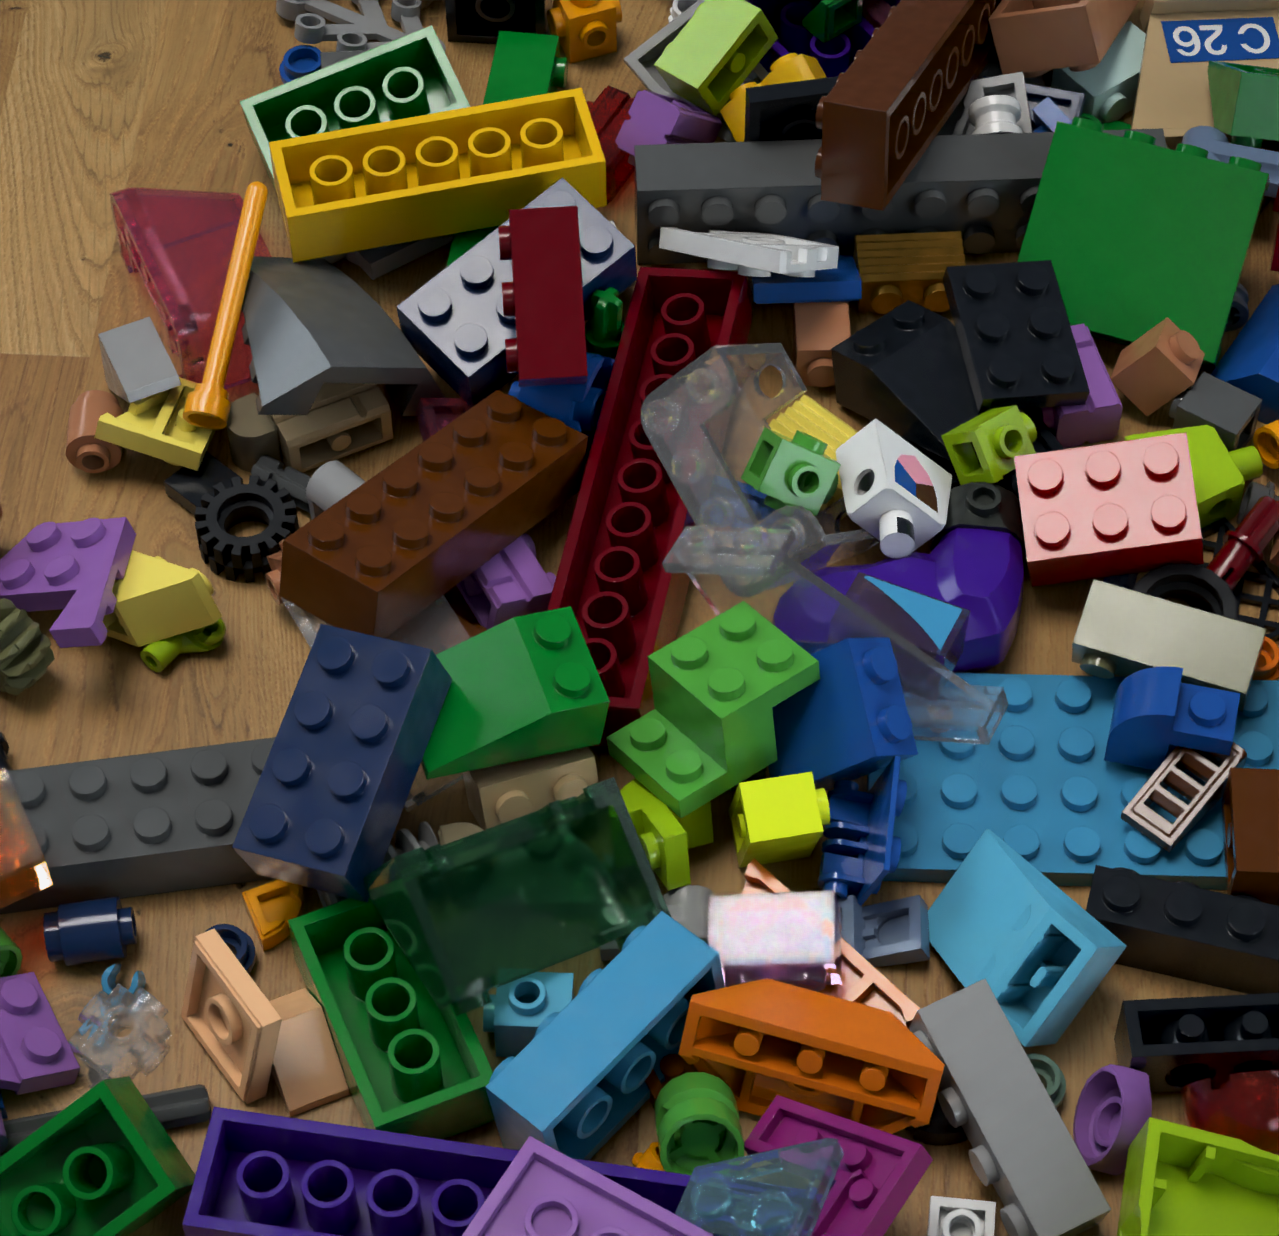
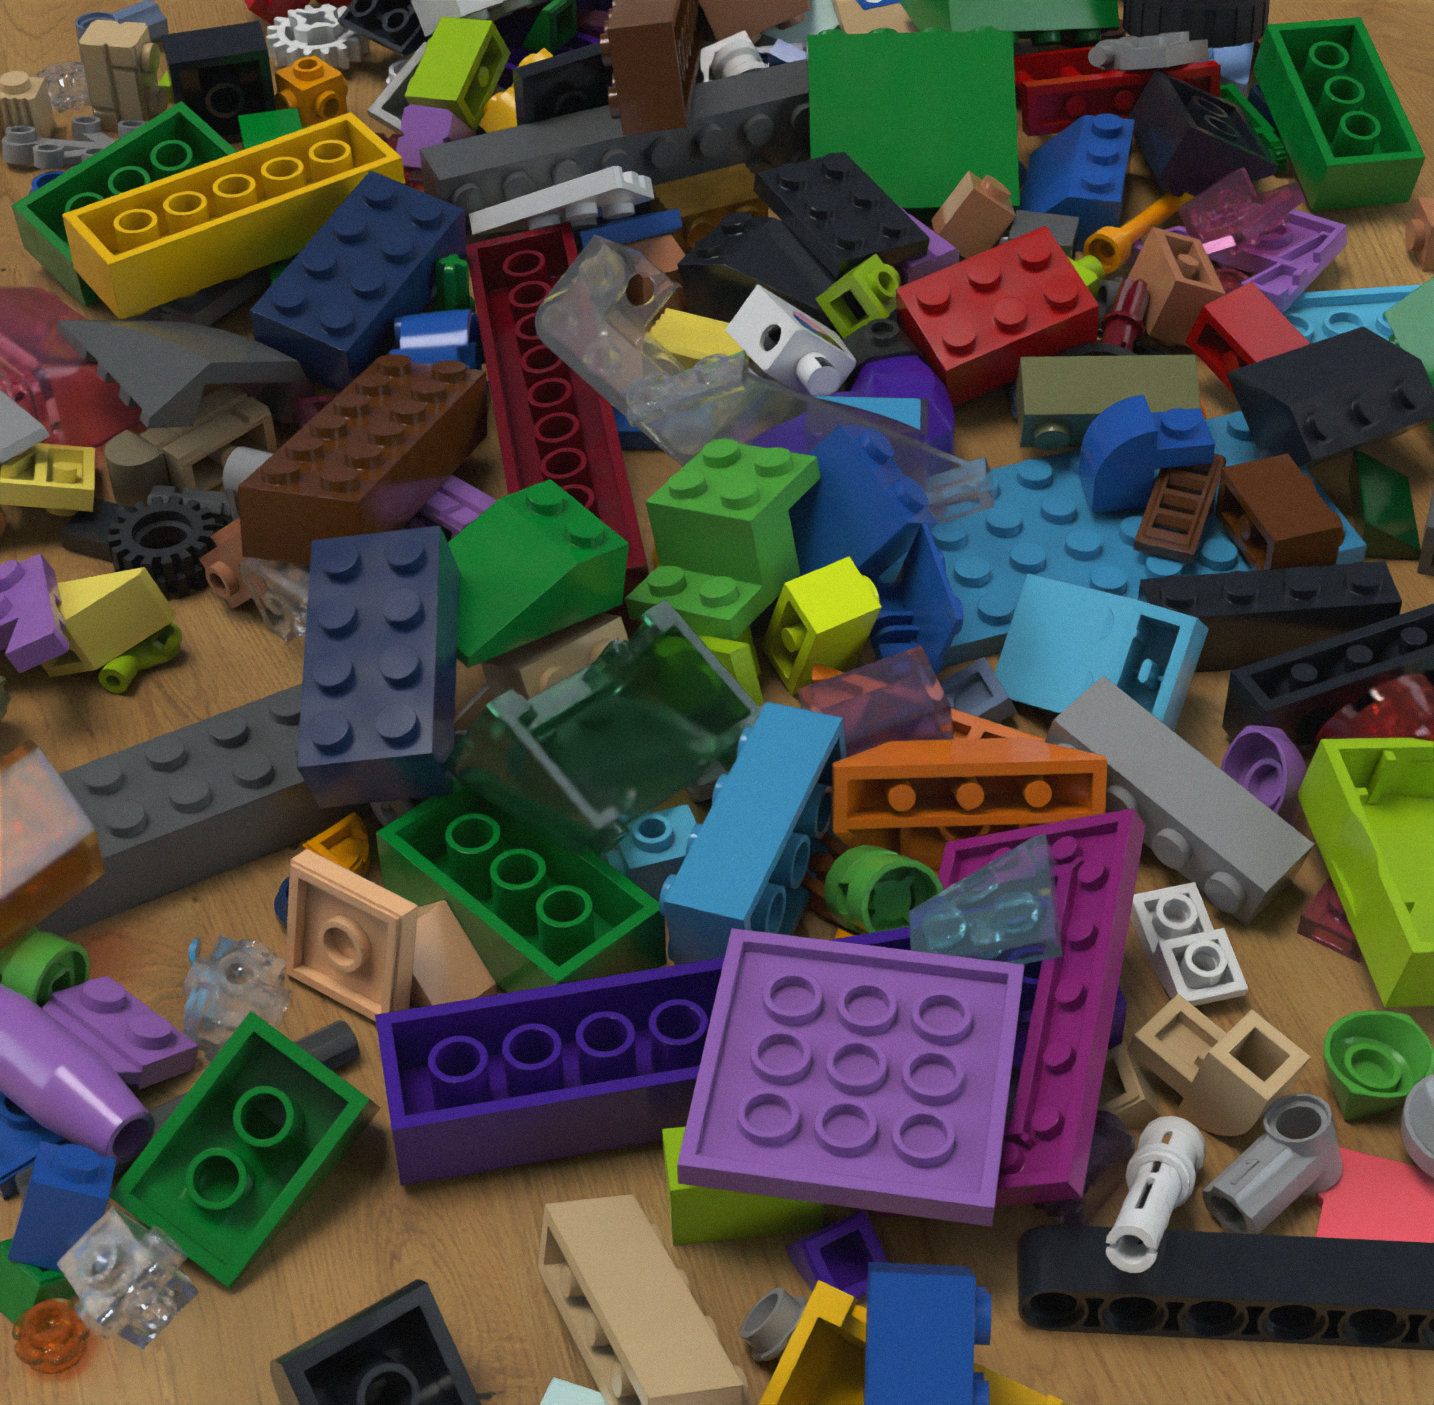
camera: 20 degrees left, 10 degrees down
(89, 931) = (154, 920): dark blue brick -> none
(208, 403) = (85, 443): light orange piece -> none
(544, 296) = (404, 248): dark red wedge -> none
(792, 471) = (690, 336): bright green brick -> none

